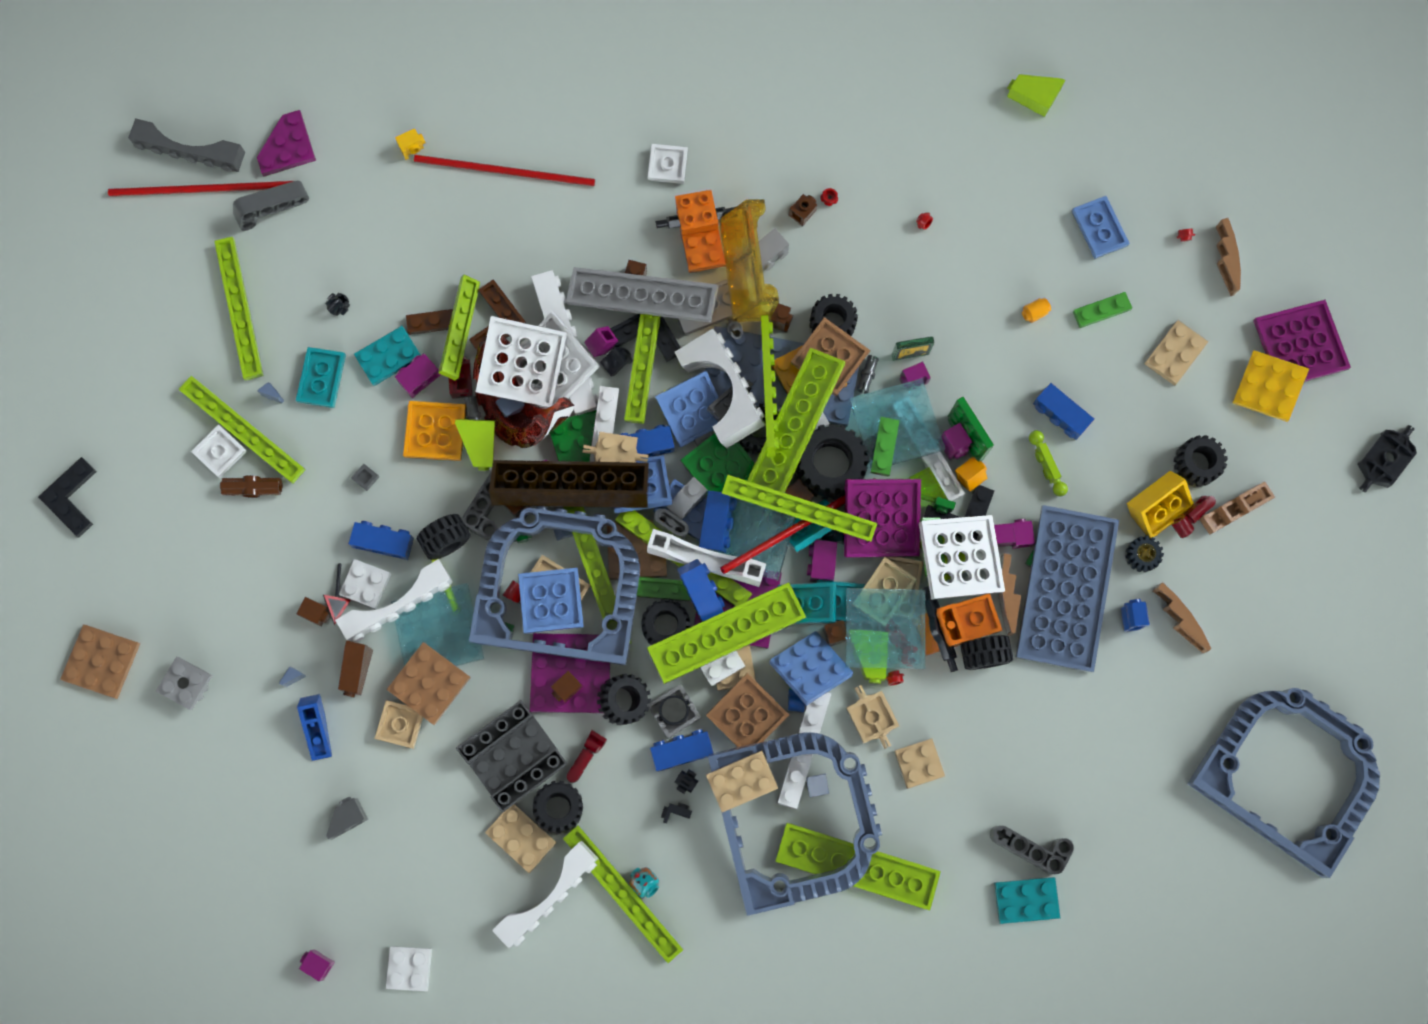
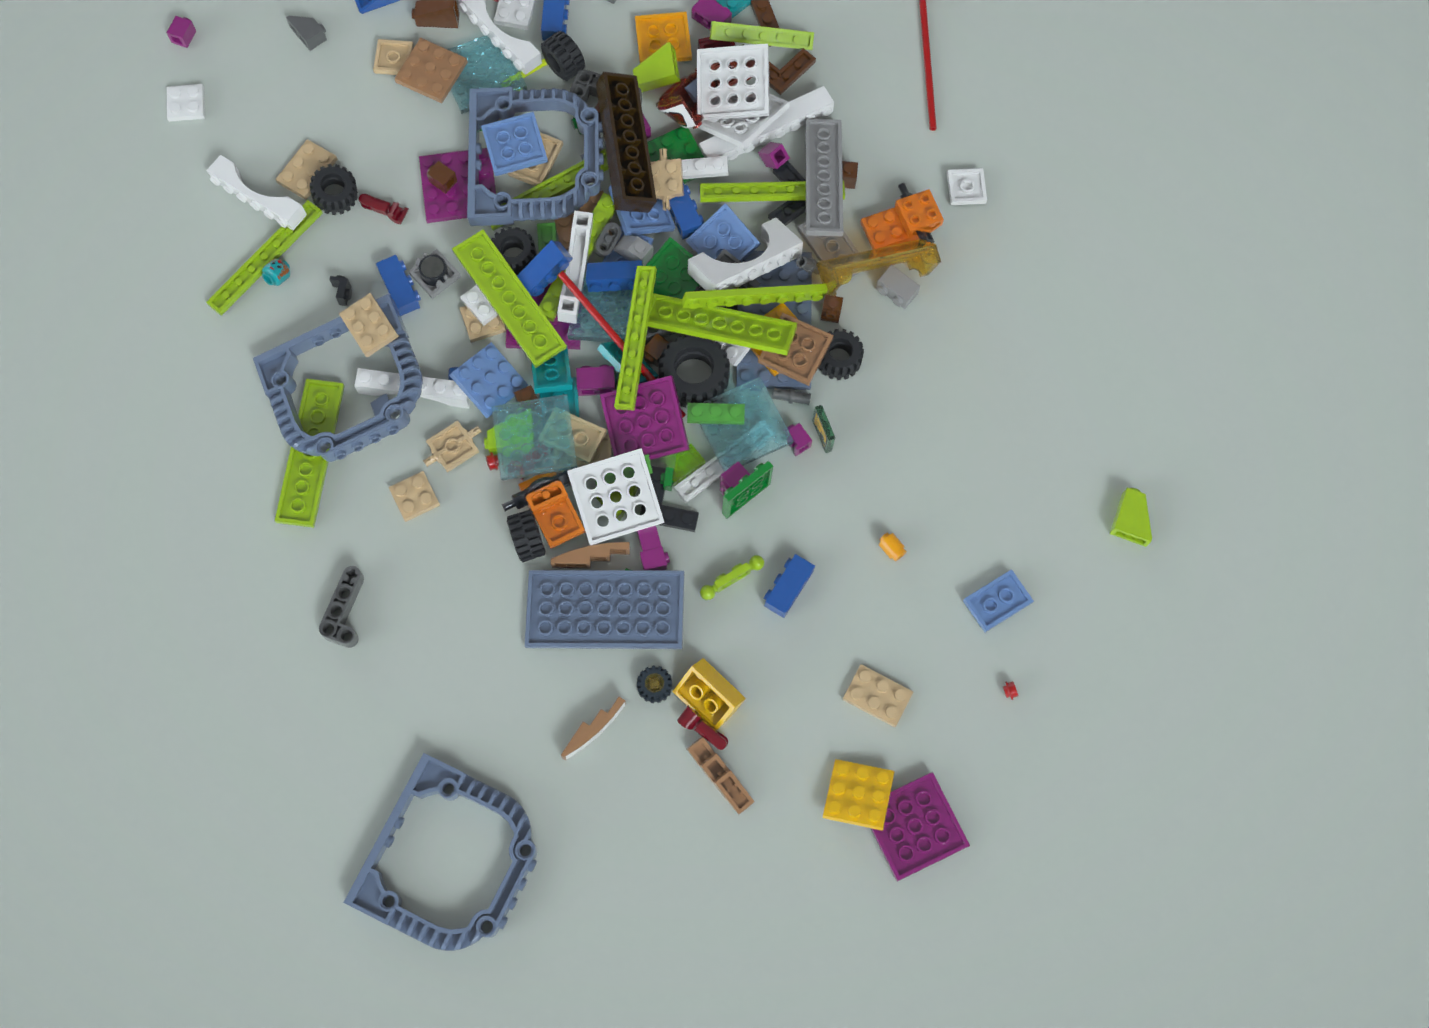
camera: 80 degrees right, 5 degrees down
(472, 409) = (684, 65): dark grey pin -> none
(512, 756) = (377, 147): dark grey slope -> none
(608, 699) = (429, 212): black tyre -> none
(616, 360) = (759, 172): black bracket -> none
(686, 781) = (370, 287): black gear -> none
(747, 713) = (439, 333): medium nougat plate -> none
(802, 214) = (944, 316): reddish brown brick -> none
(829, 192) = (968, 332): red plate -> none
(924, 220) = (964, 427): red plate -> none
(971, 474) = (706, 504): light orange brick -> none
(1027, 900) = (294, 612): teal plate -> none
(1102, 309) = (908, 615): bright green plate -> none
(1134, 615) = (586, 676): blue brick -> none
(1210, 450) = (770, 713): black tyre -> none
(1230, 261) = (988, 737): medium nougat slope -> none
(1375, 464) = (822, 933): black plate -> none

